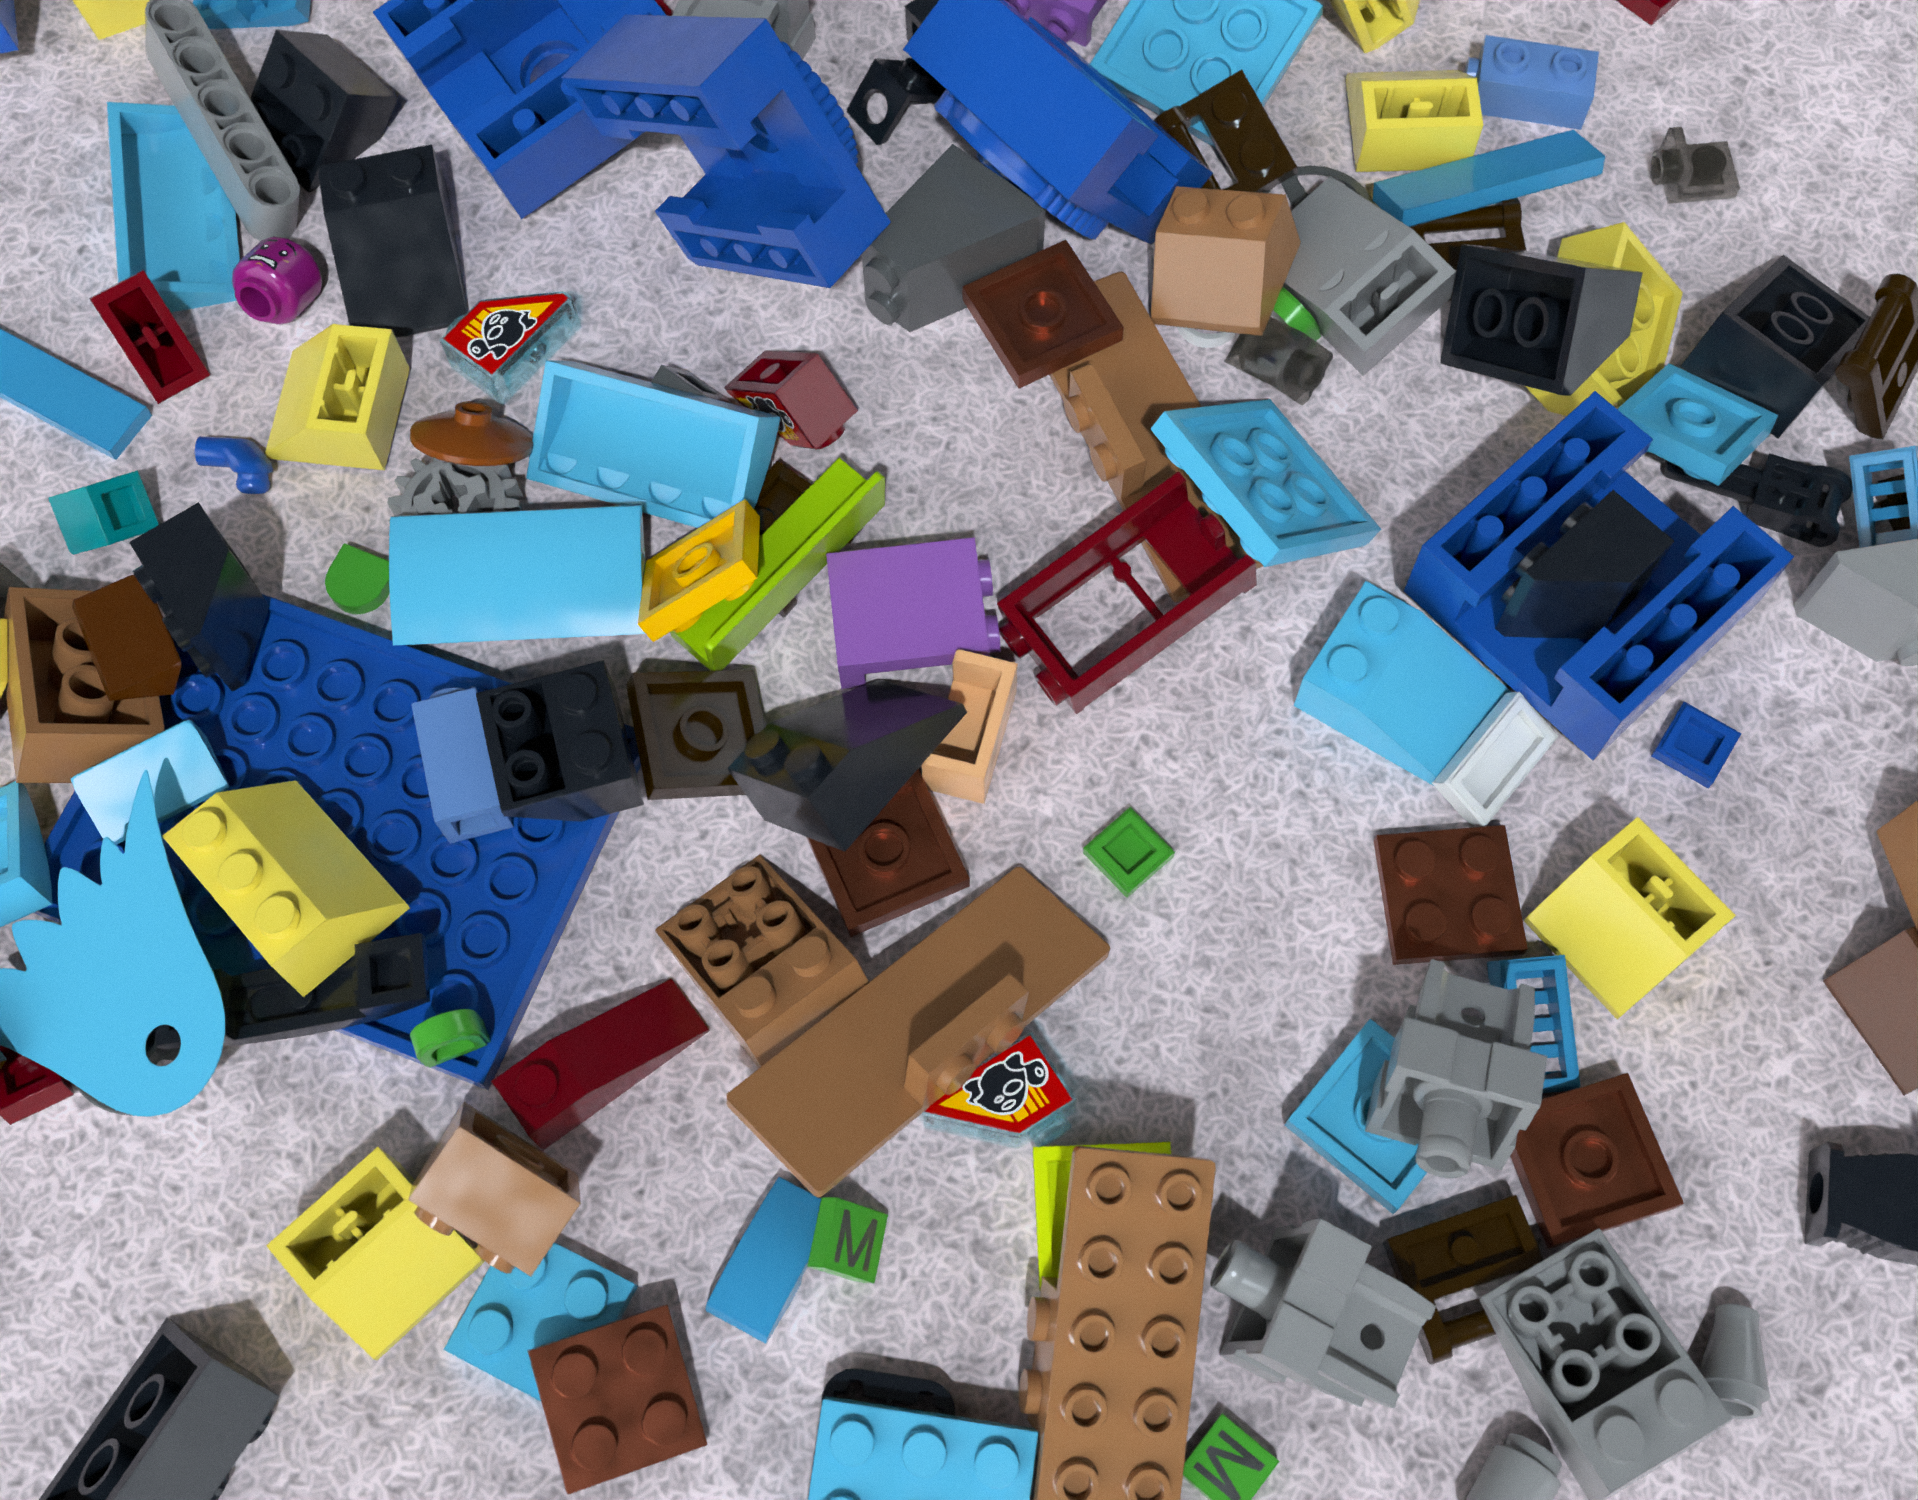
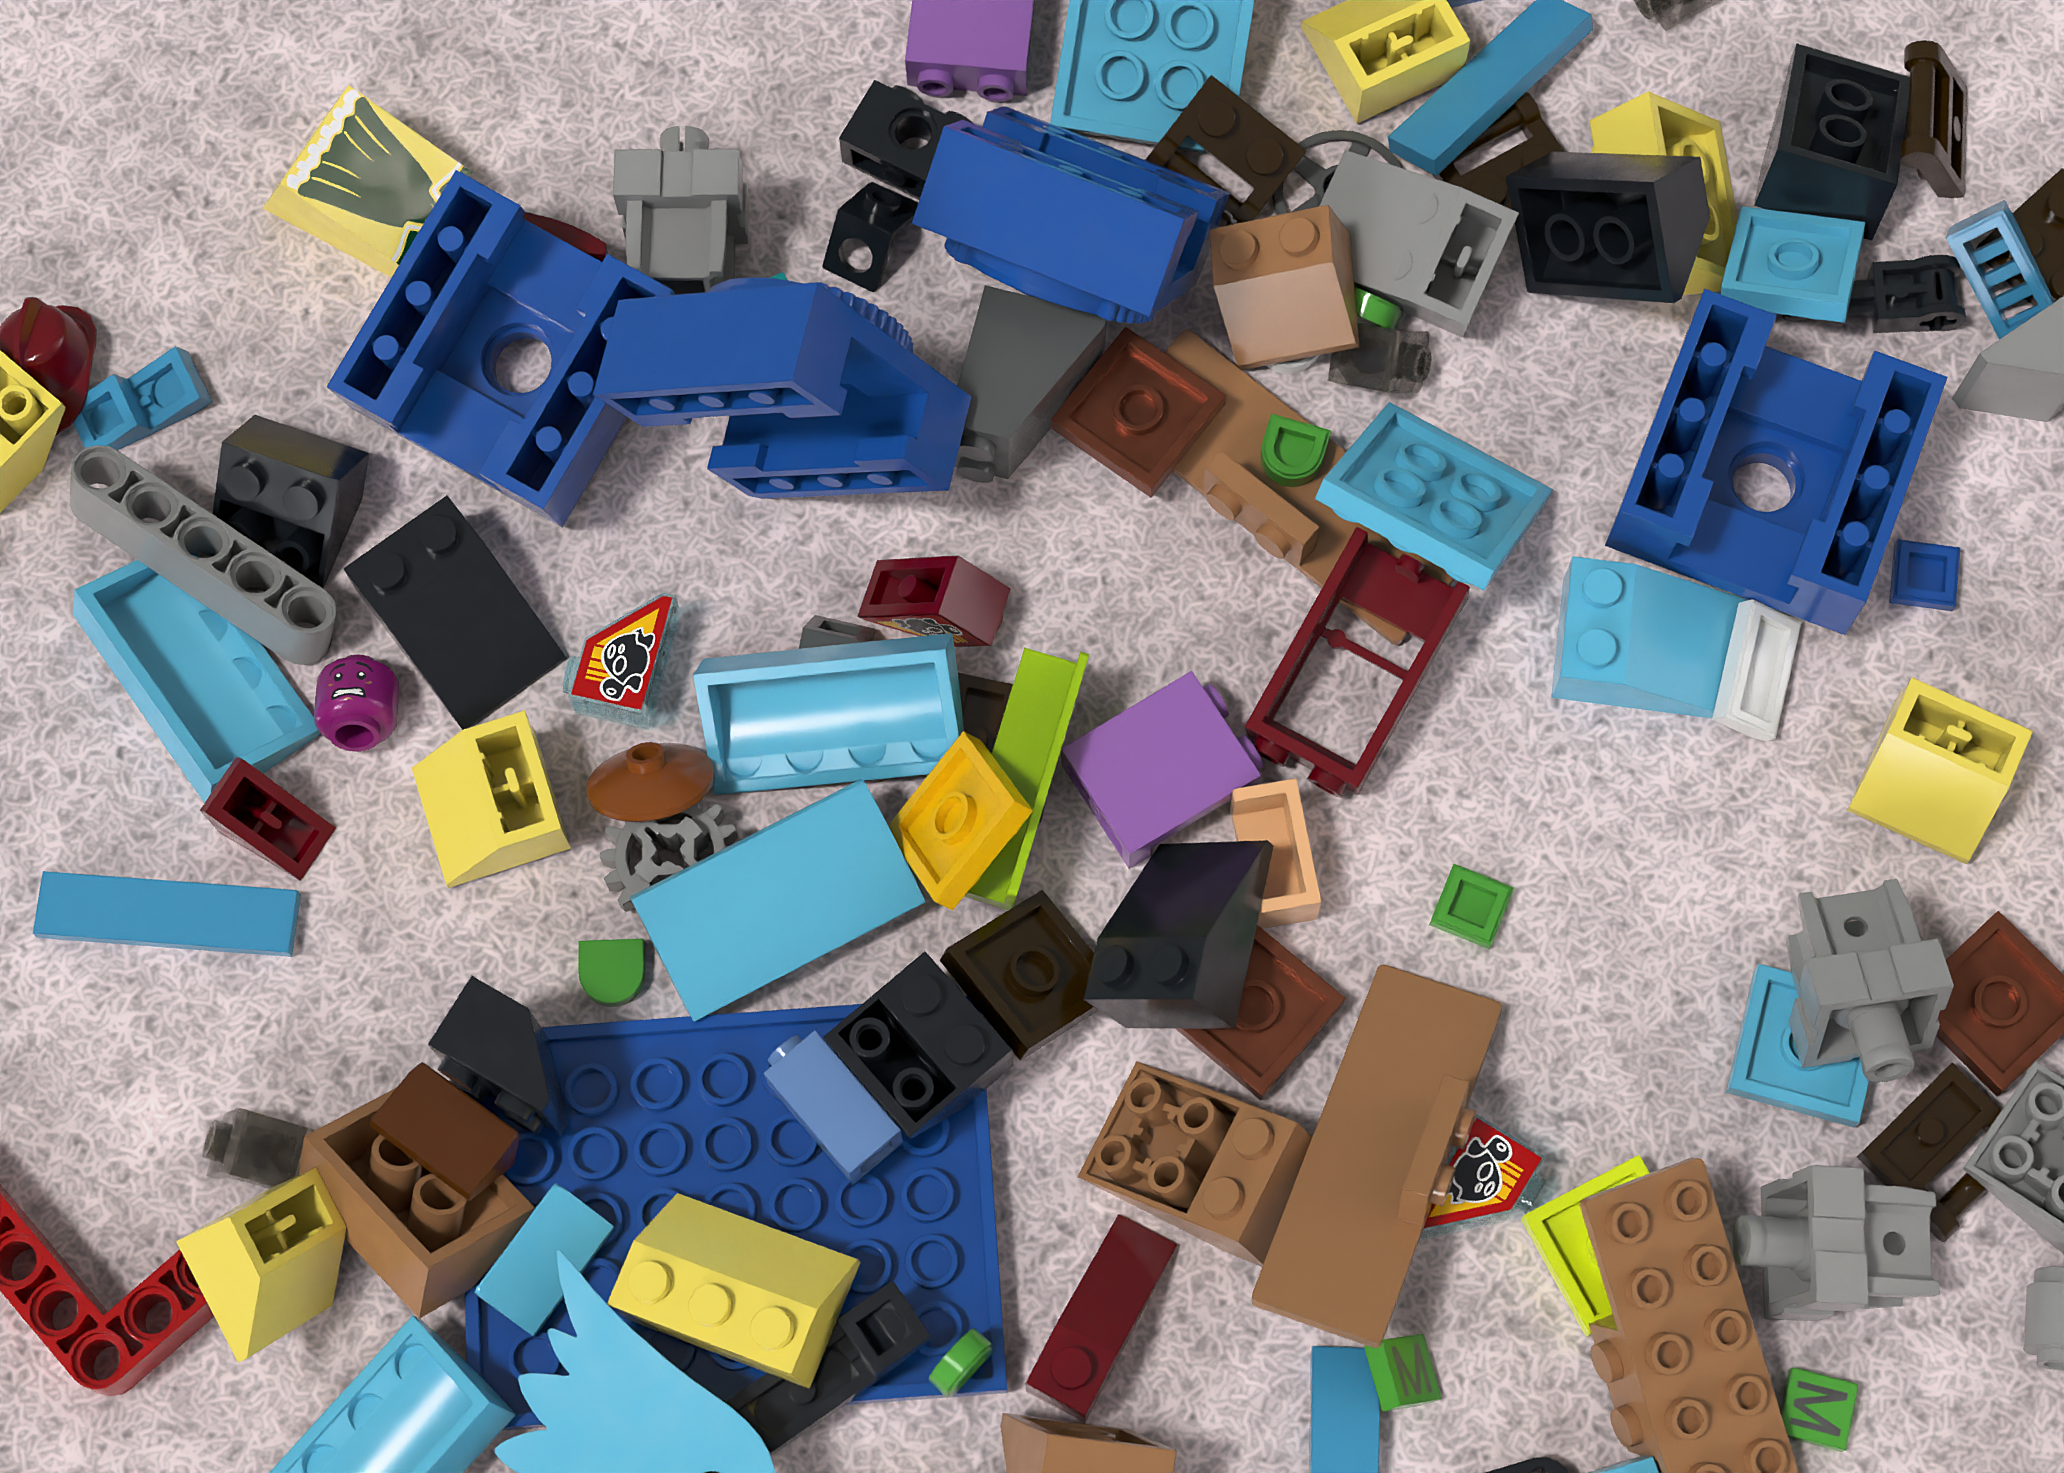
camera: 25 degrees left, 5 degrees up
(104, 513) = (322, 1017): teal panel -> none
(241, 457) = (425, 898): blue arm -> none
(1160, 392) = (1293, 451): none -> bright green tile
(1449, 895) = (1772, 815): copper plate -> none
(1557, 997) = (1904, 864): dark azure slope -> none
(1586, 574) = (1771, 471): black slope -> none

